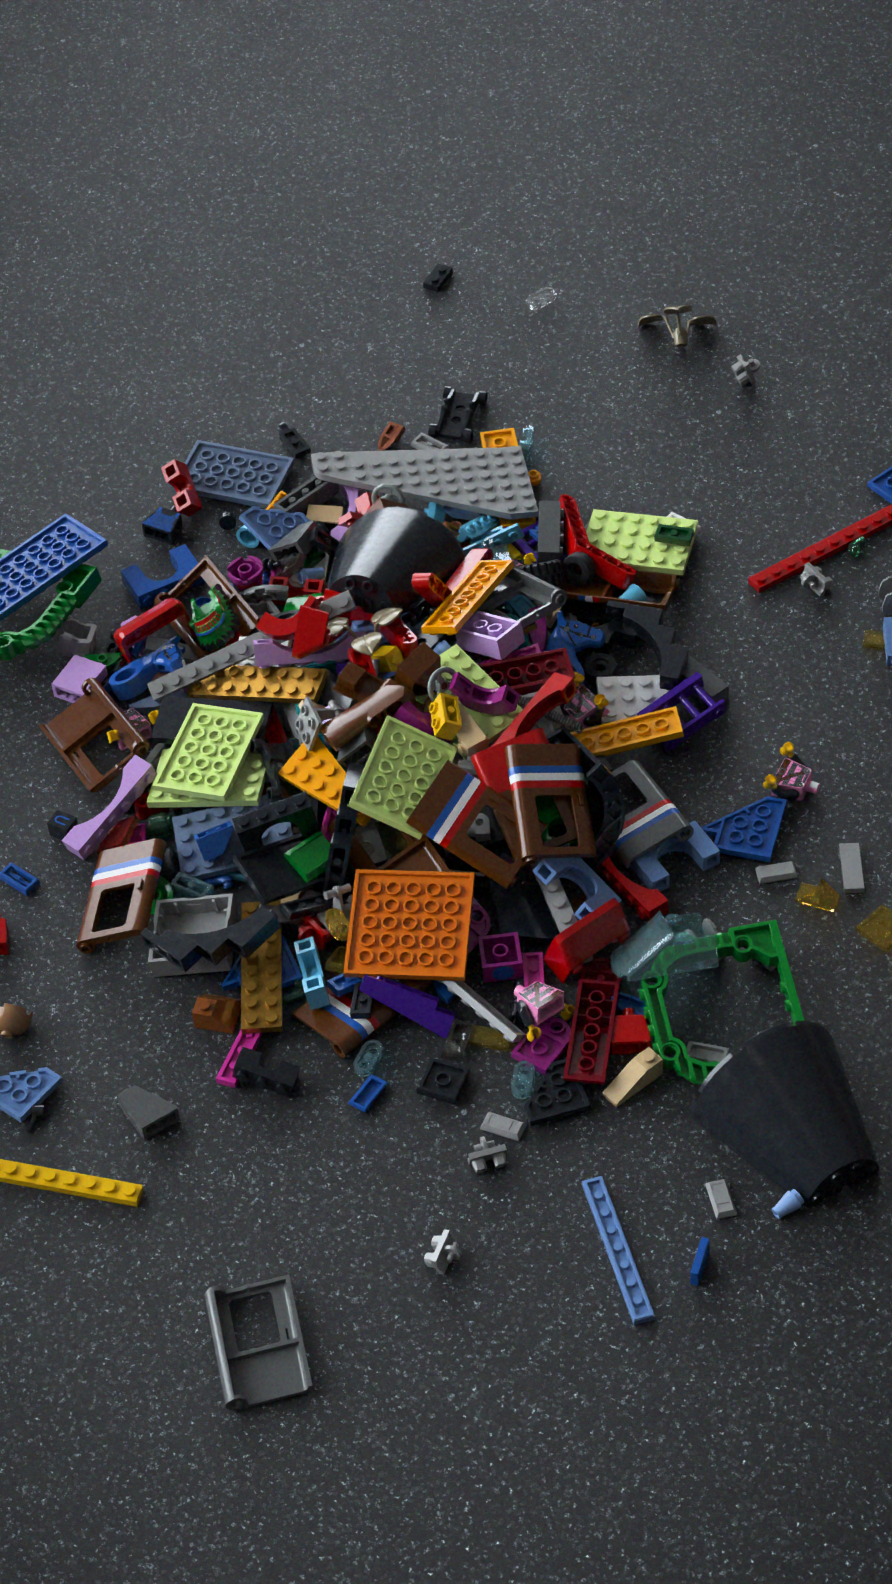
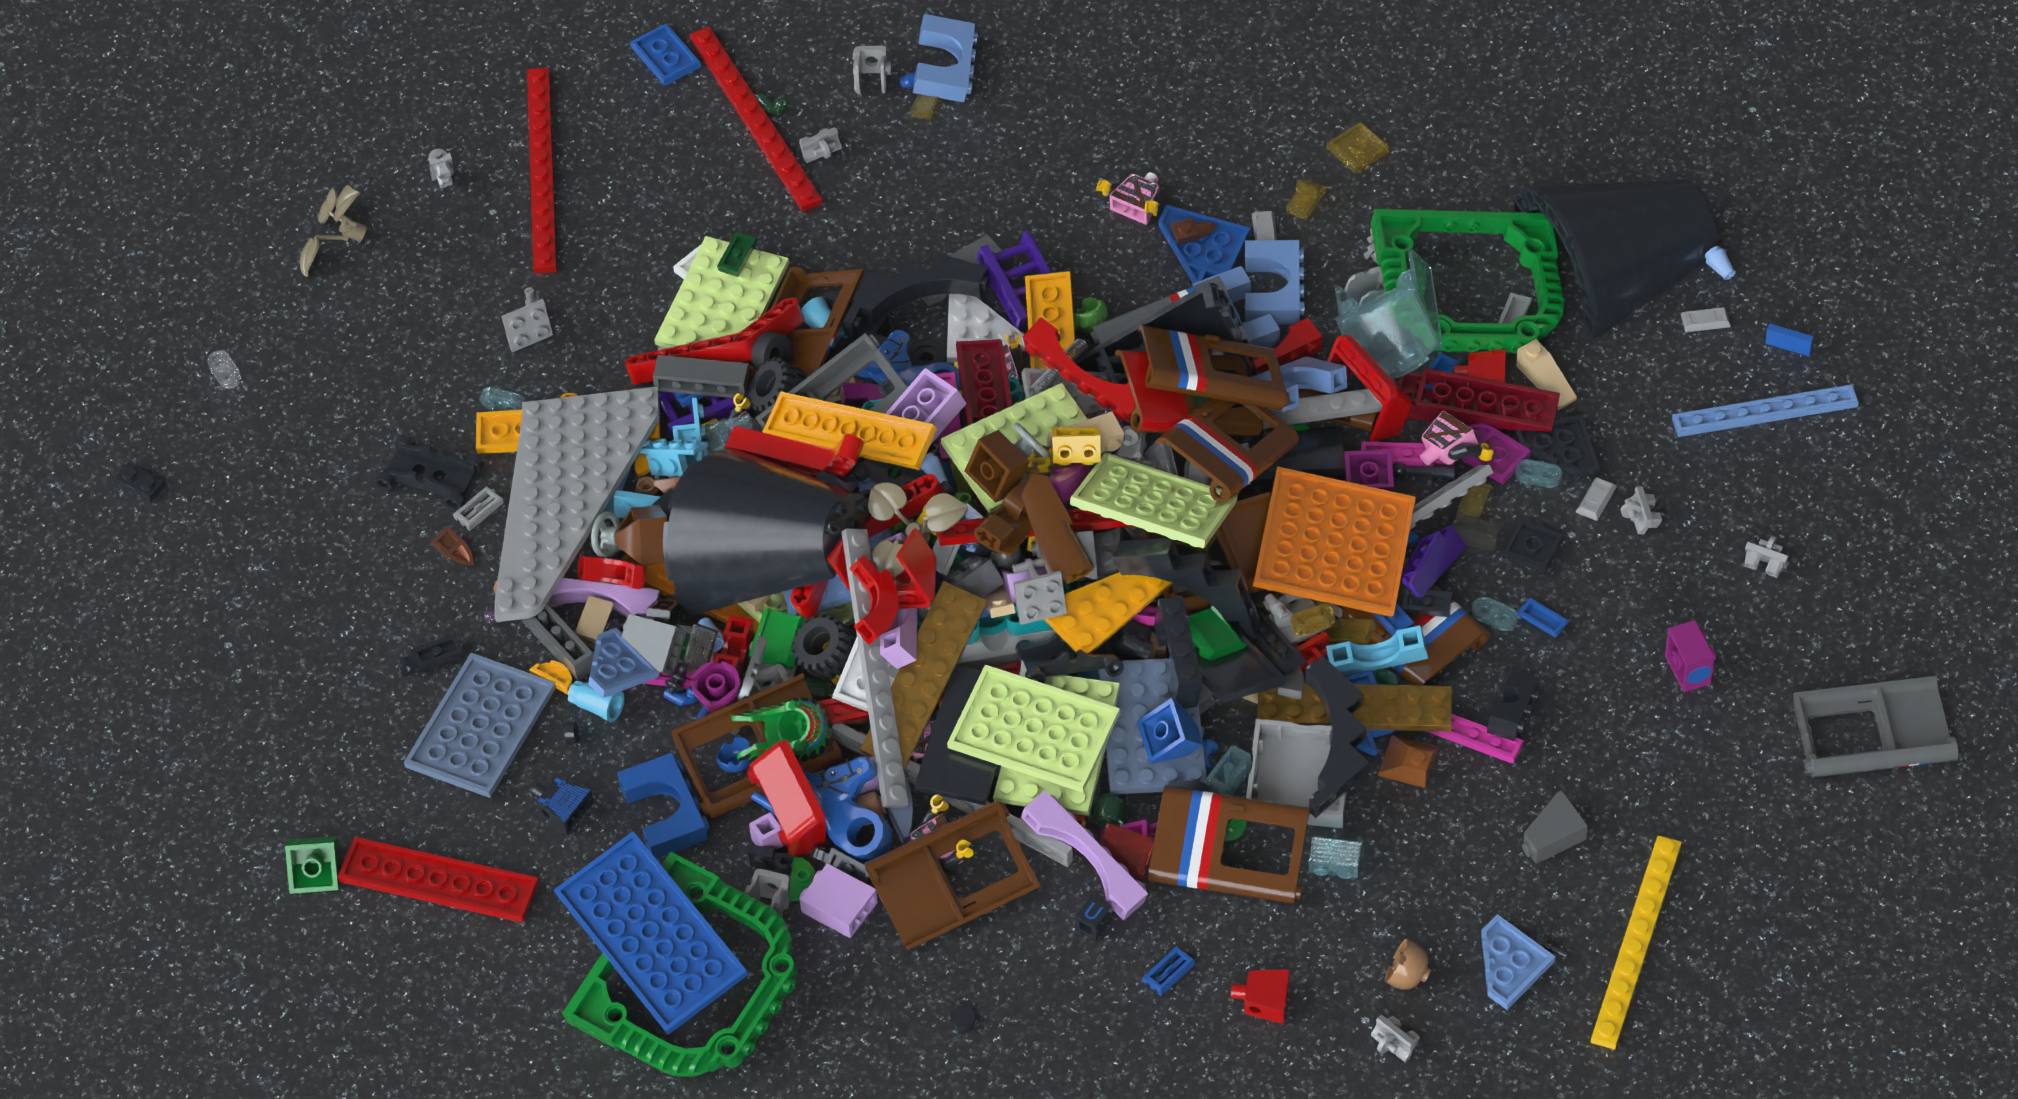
camera: 85 degrees left, 5 degrees up
(101, 473) = (438, 879): none -> red plate
(113, 410) = (312, 864): none -> green slope
(118, 968) = (1334, 857): none -> clear light blue brick
(178, 476) = (511, 771): red arch -> none
(320, 1192) = (1690, 656): none -> magenta brick
(484, 700) = (1049, 405): magenta arch -> none
(597, 438) = (527, 323): none -> light grey plate
(654, 762) = (1091, 314): none -> bright green hair
(691, 891) = (1280, 258): none -> medium blue arch
(758, 816) = (1189, 230): none -> copper plate
(763, 429) = (541, 171): none -> red plate
(851, 868) = (1269, 164): light grey tile -> none

